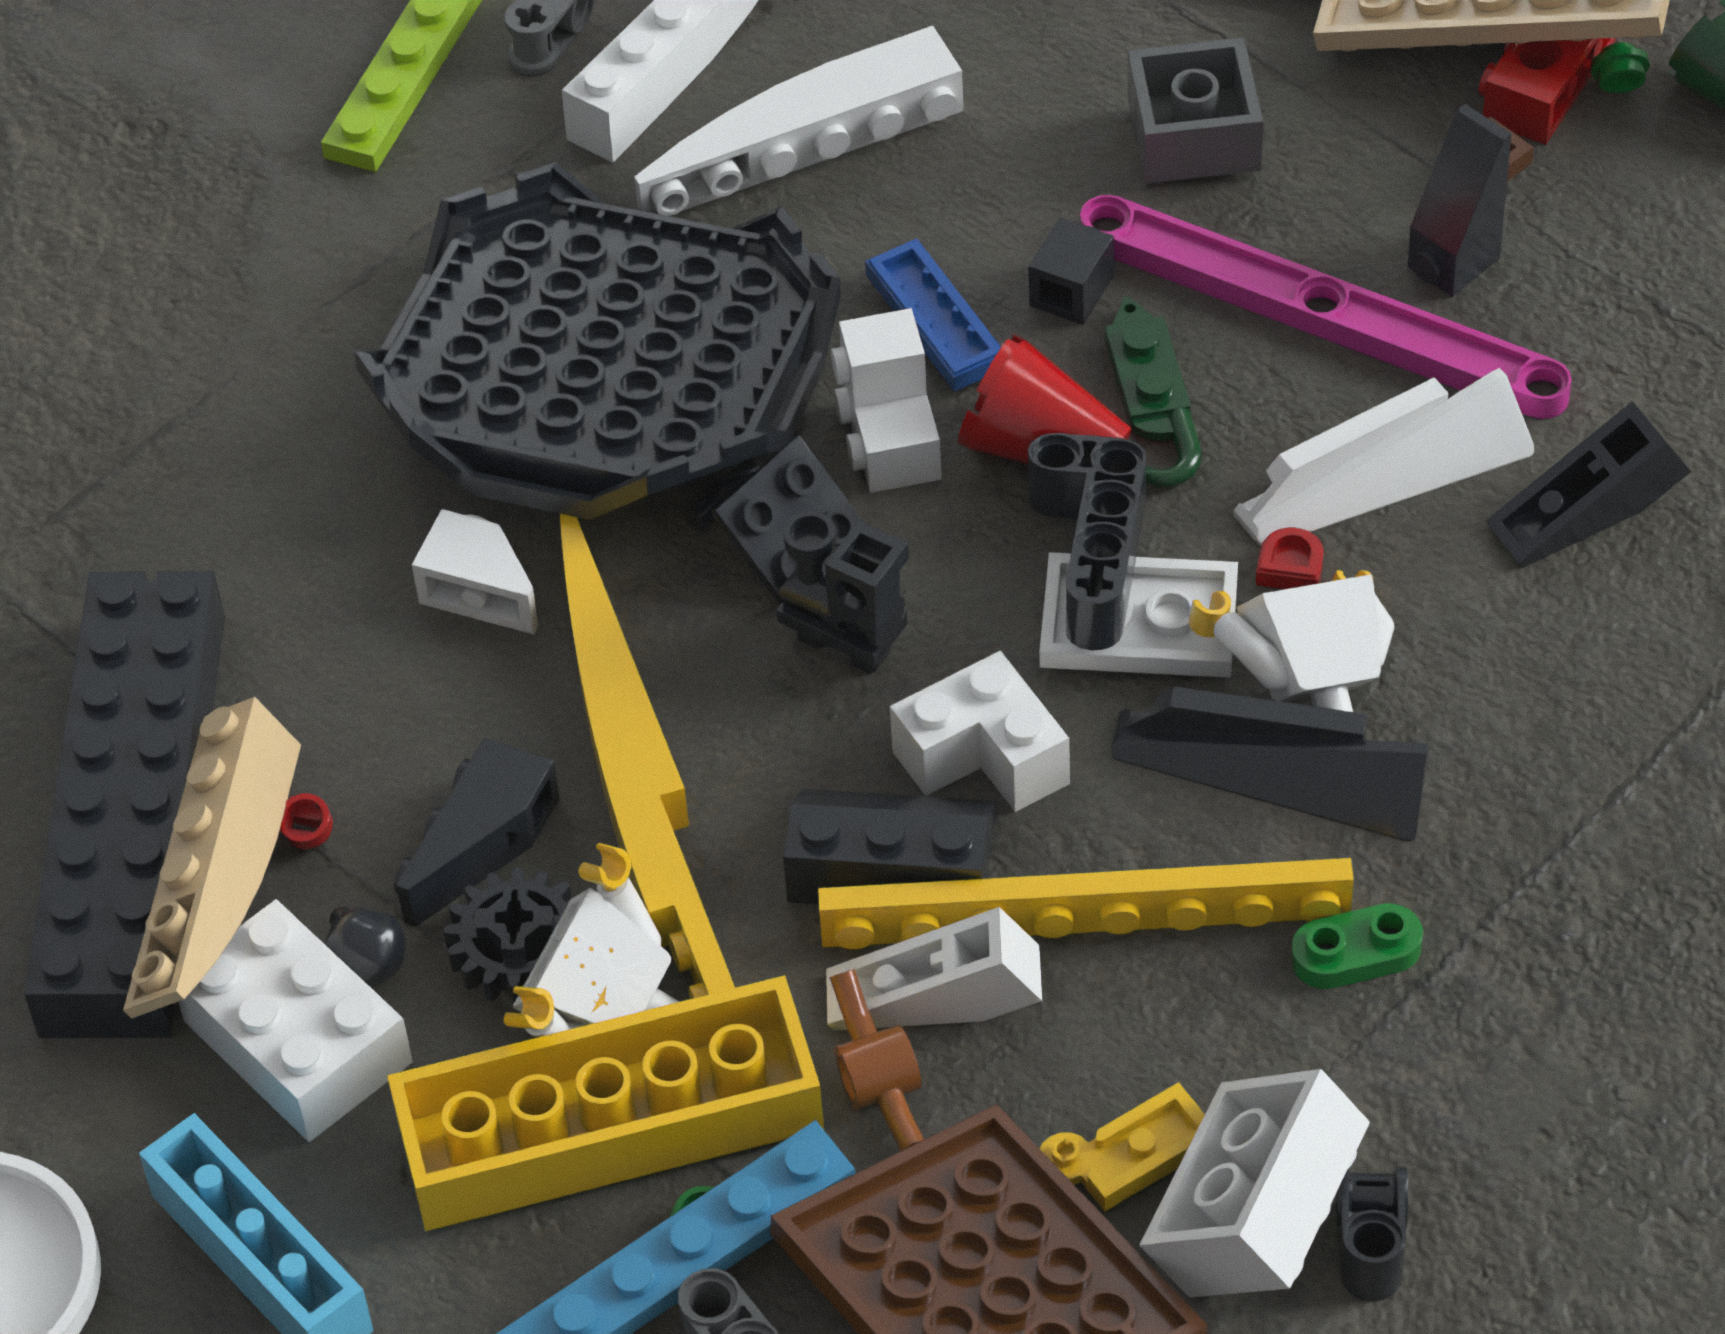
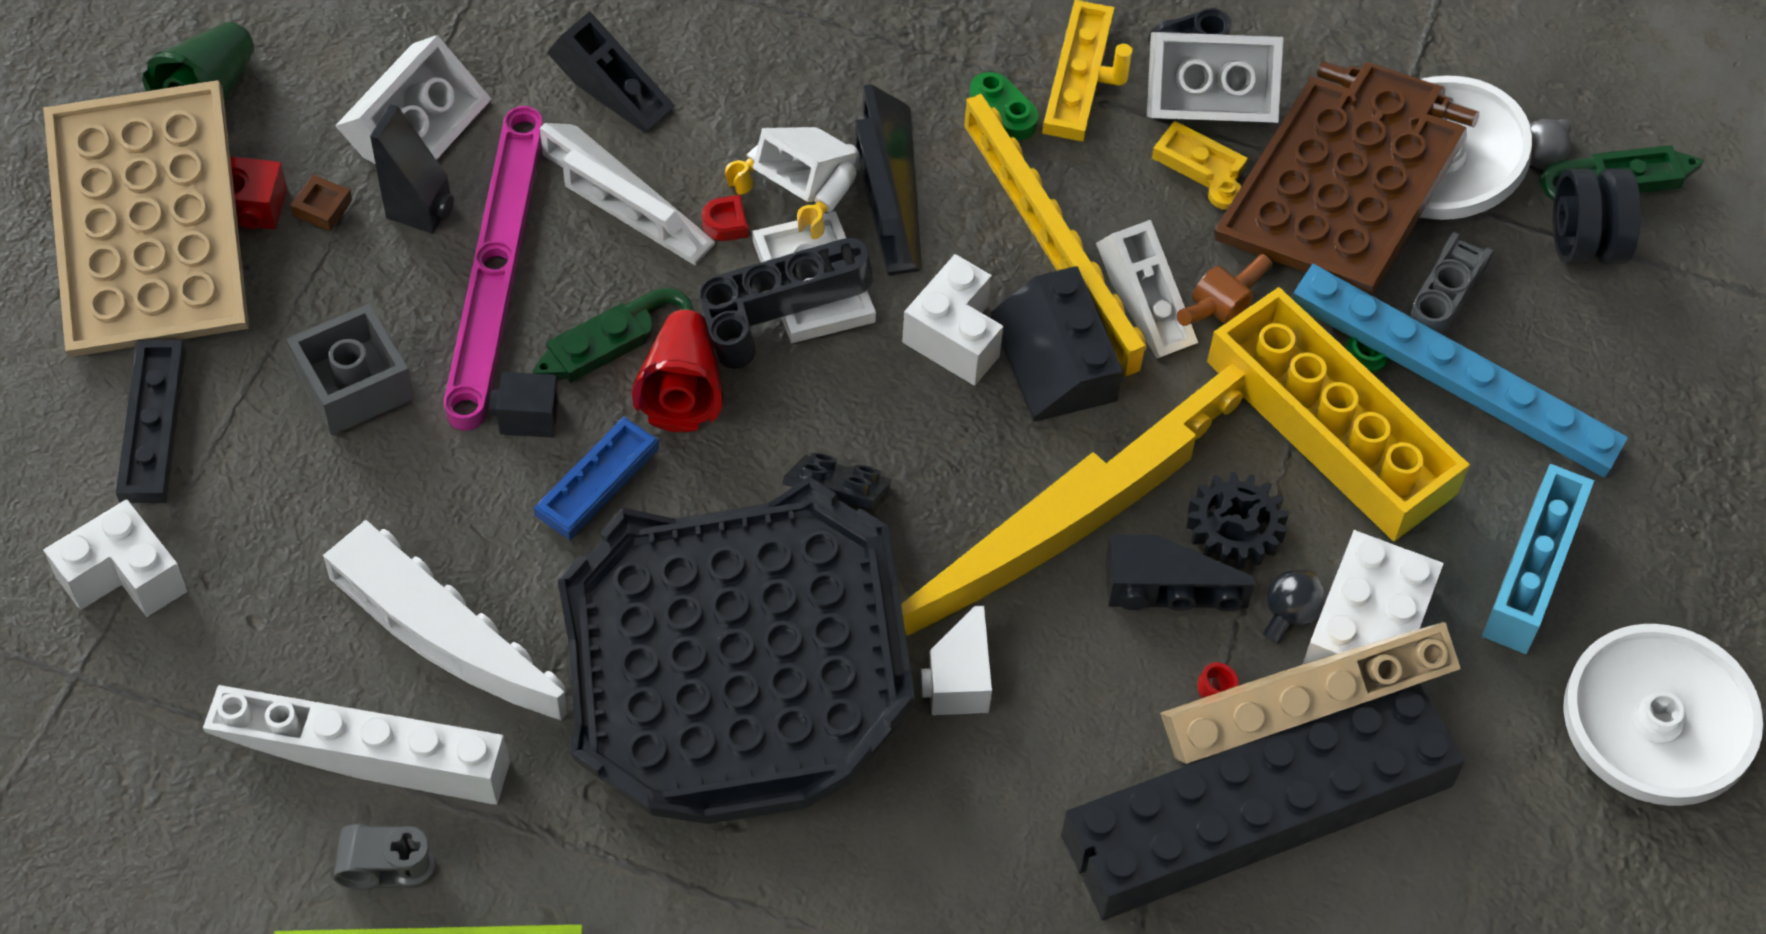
camera: 120 degrees left, 5 degrees up
(598, 959) = (1262, 446): white torso -> none
(852, 596) = (904, 405): black hips -> none
(886, 401) = (707, 462): white brick -> none
(1380, 1058) = (1082, 69): none -> yellow plate
(1607, 272) = (430, 91): none -> white slope

